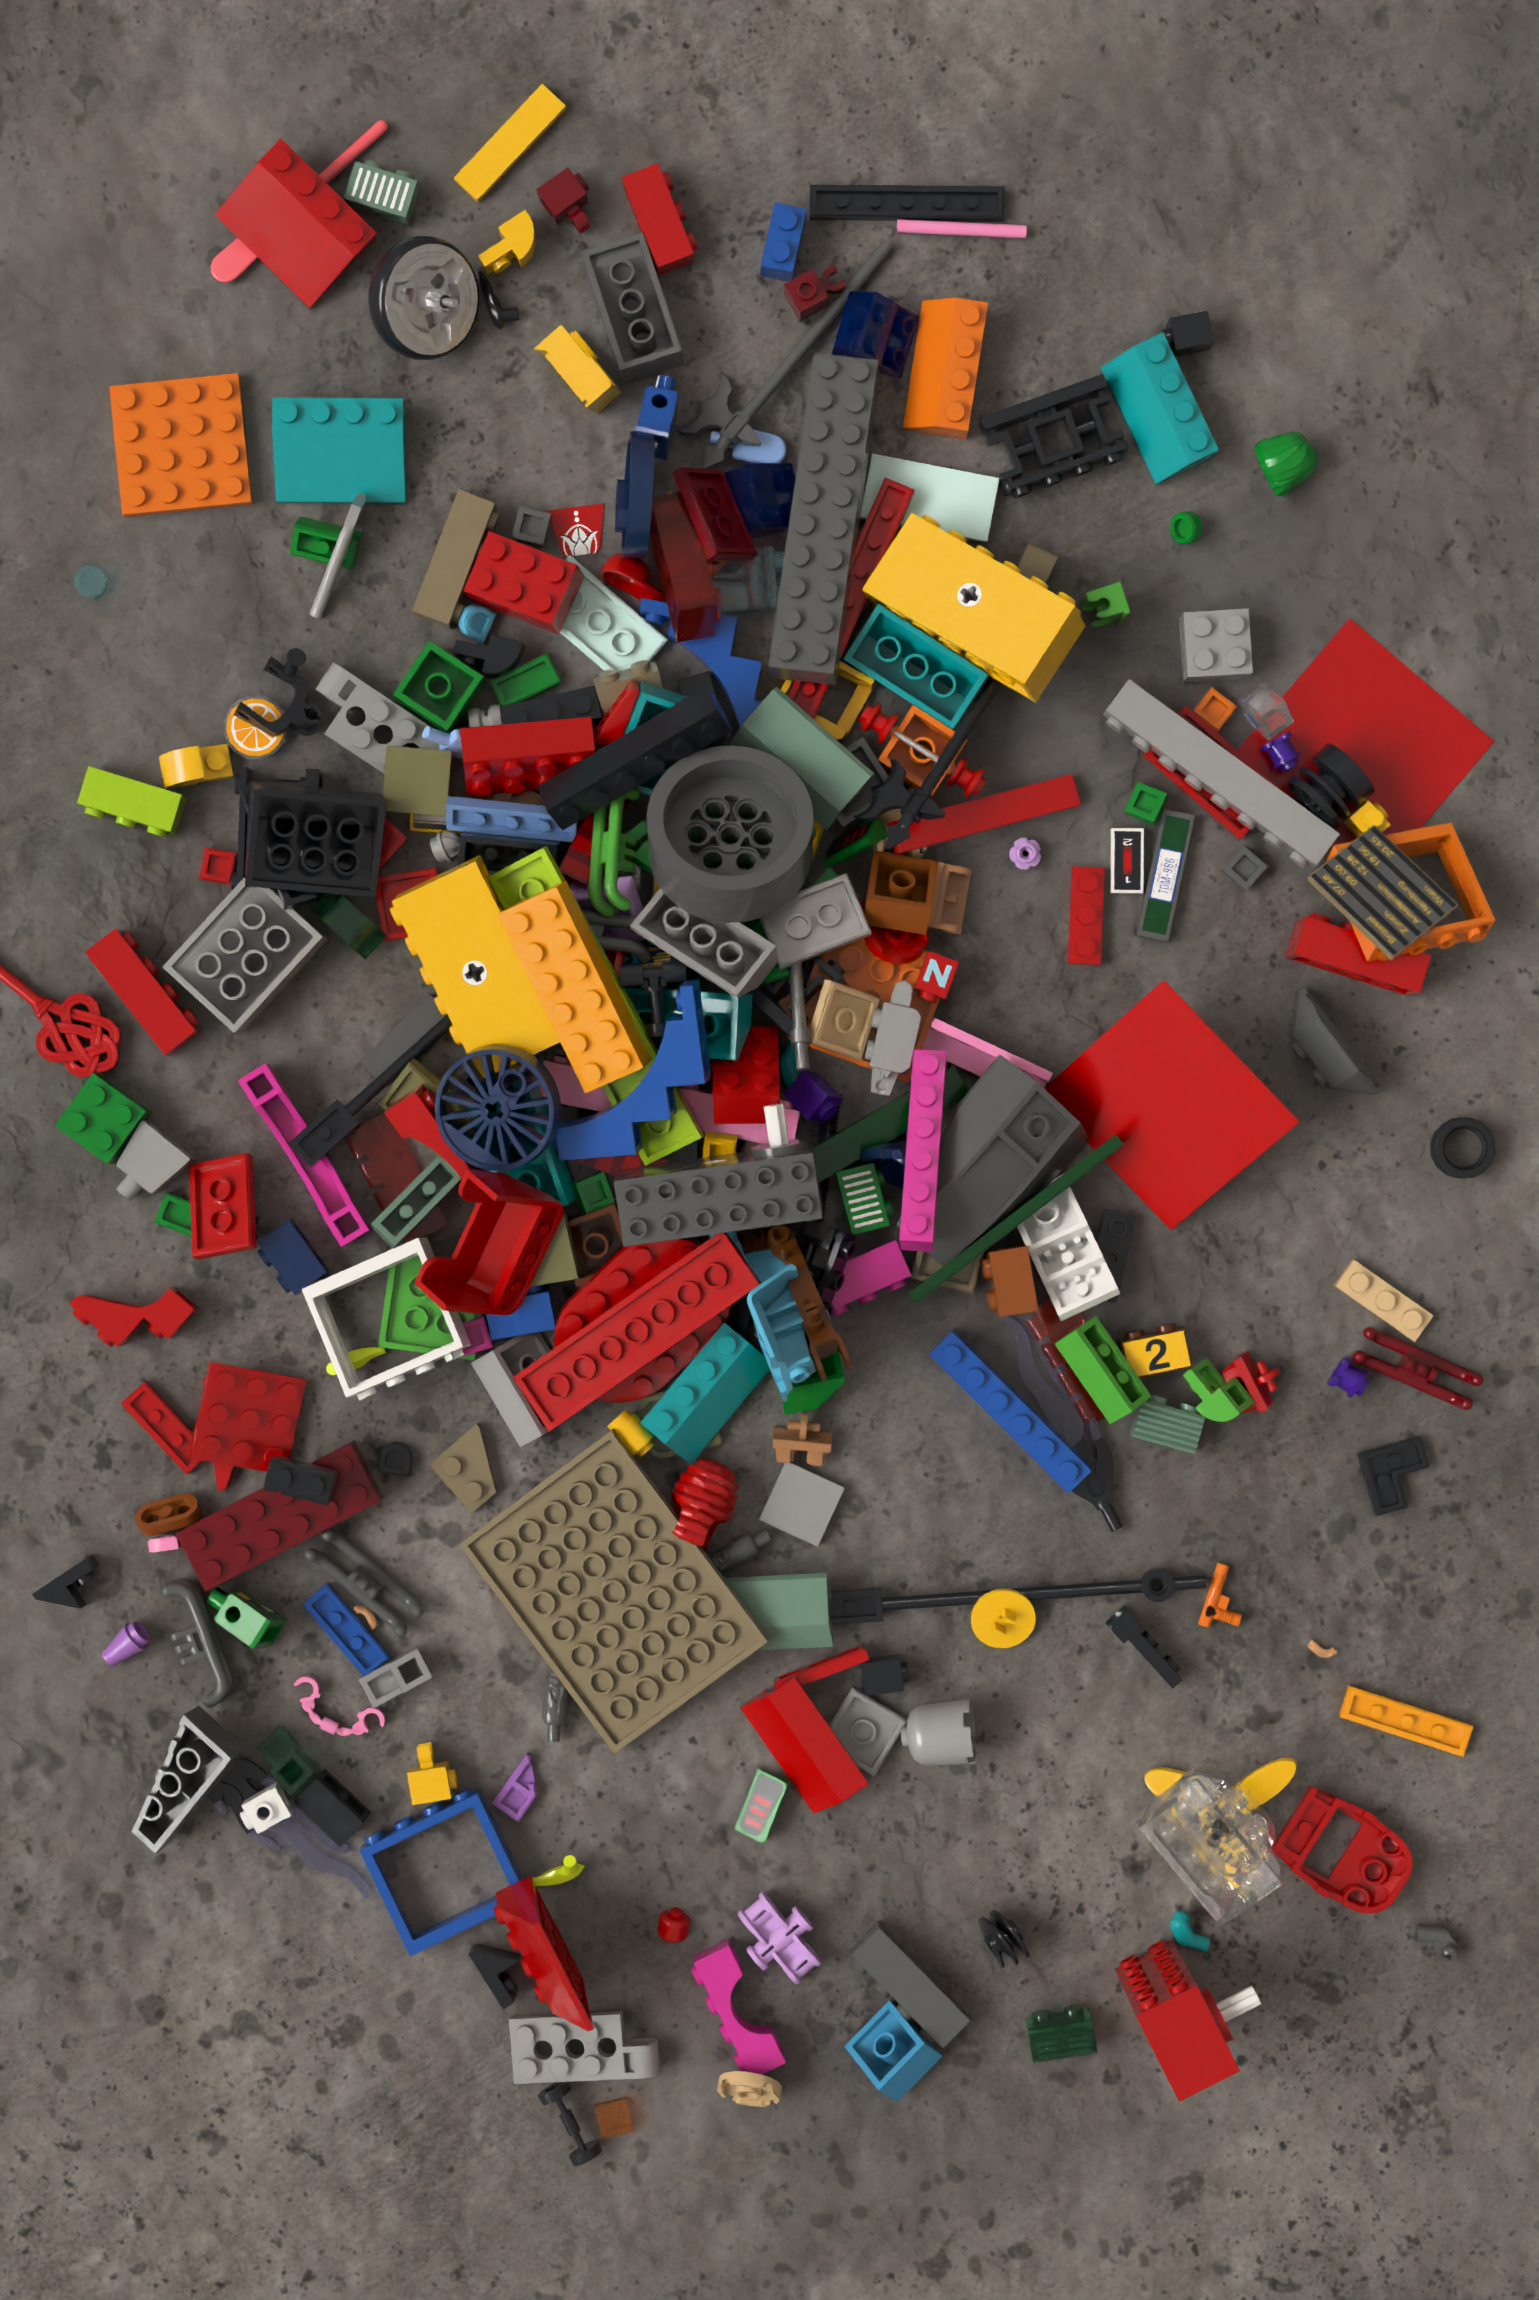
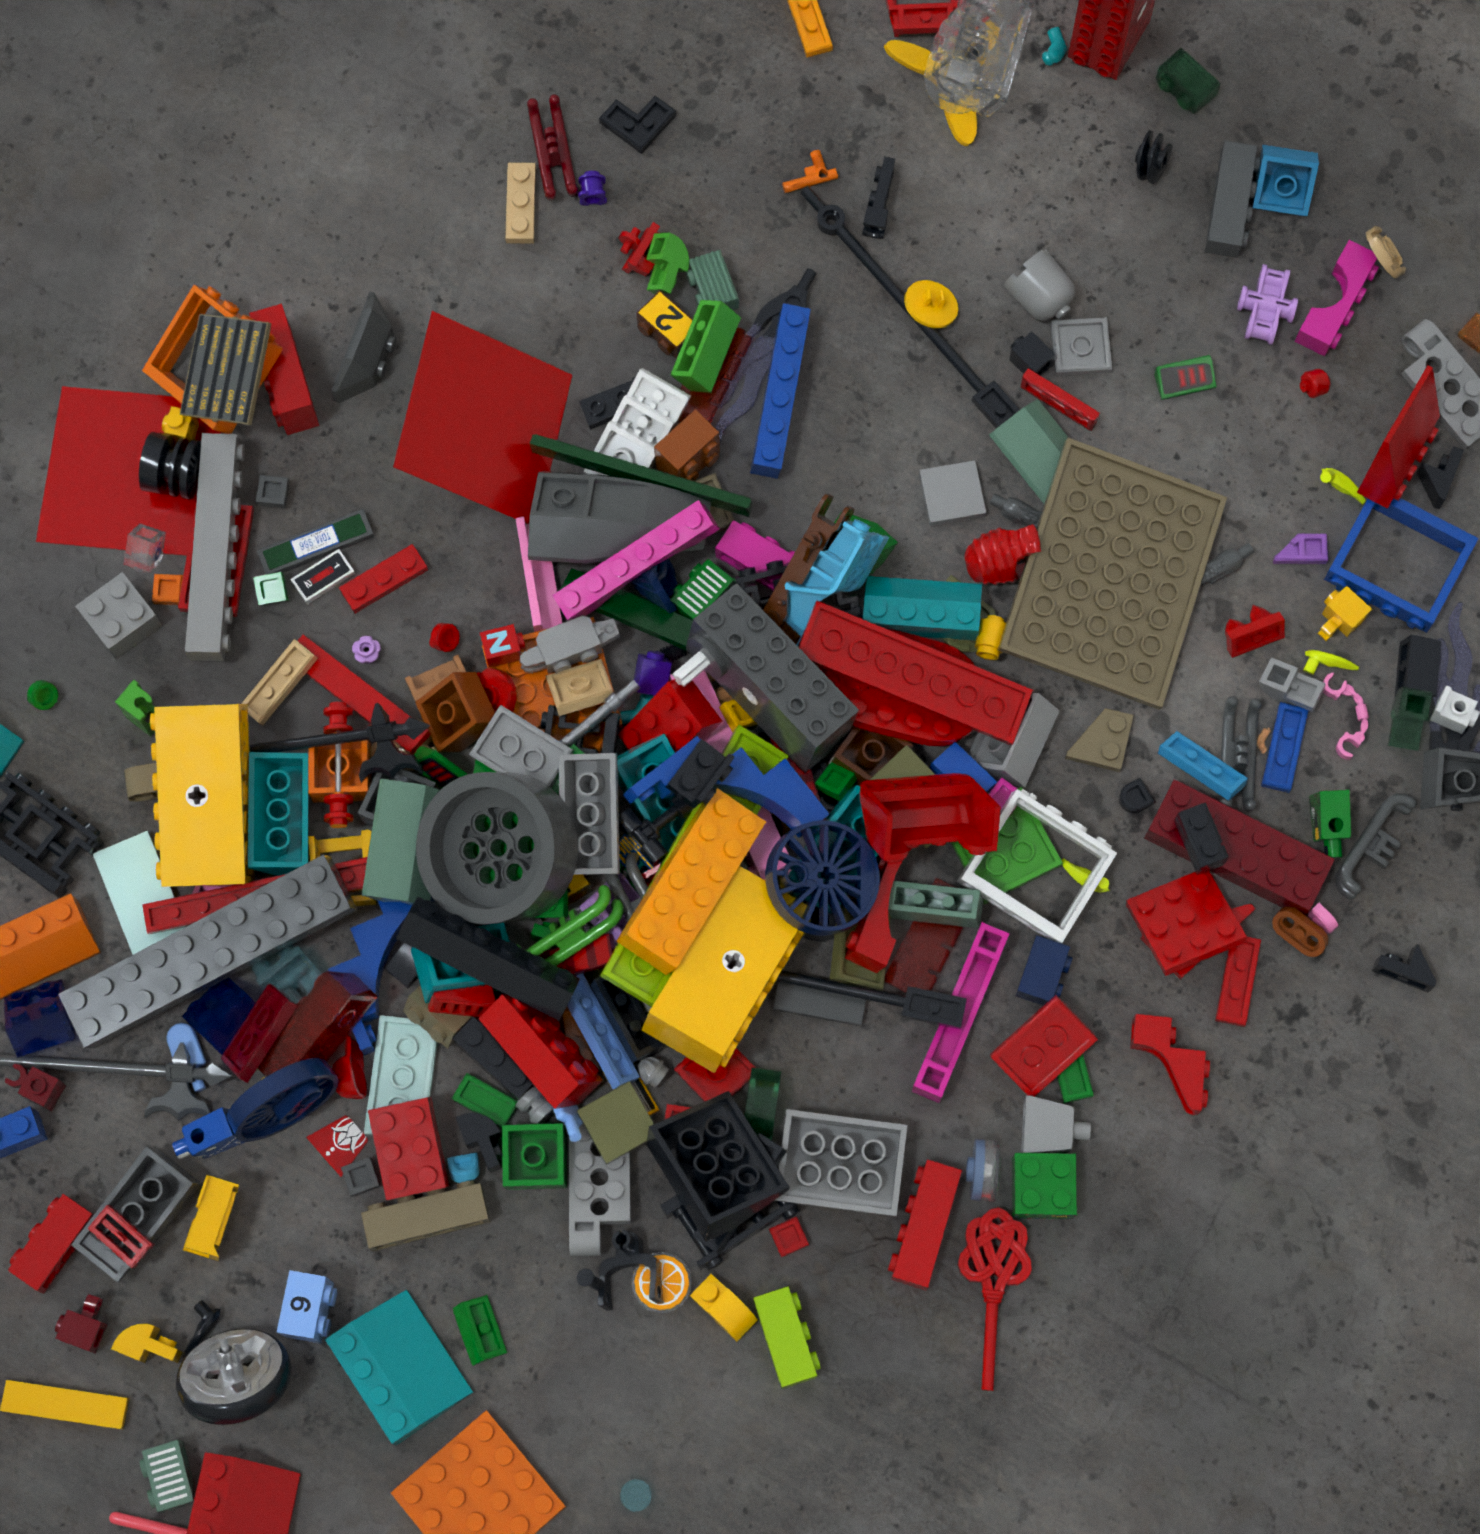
camera: 125 degrees left, 15 degrees down
(128, 1642) = (1414, 896): medium lavender cone -> none
(150, 1074) = (984, 1170): none -> piece
(337, 557) = (448, 1314): light grey piece -> none
(377, 1539) = (1202, 765): none -> dark azure plate
(408, 1723) = (1326, 659): none -> neon yellow bar
(444, 401) = (306, 1307): none -> light blue brick
(467, 1694) = (1259, 632): none -> red tile
(619, 290) = (140, 1253): none -> red tile
(663, 1059) = (699, 774): none -> black bracket
(803, 1437) = (905, 521): medium nougat hips -> none
(804, 1745) = (1121, 374): red slope -> none
(986, 932) = (444, 637): none -> red tile
(1047, 751) = (279, 681): none -> tan tile
(1282, 752) = (168, 519): dark purple brick -> none
(1328, 1652) = (796, 93): light nougat leg -> none
(1486, 1139) = (371, 199): black tyre -> none

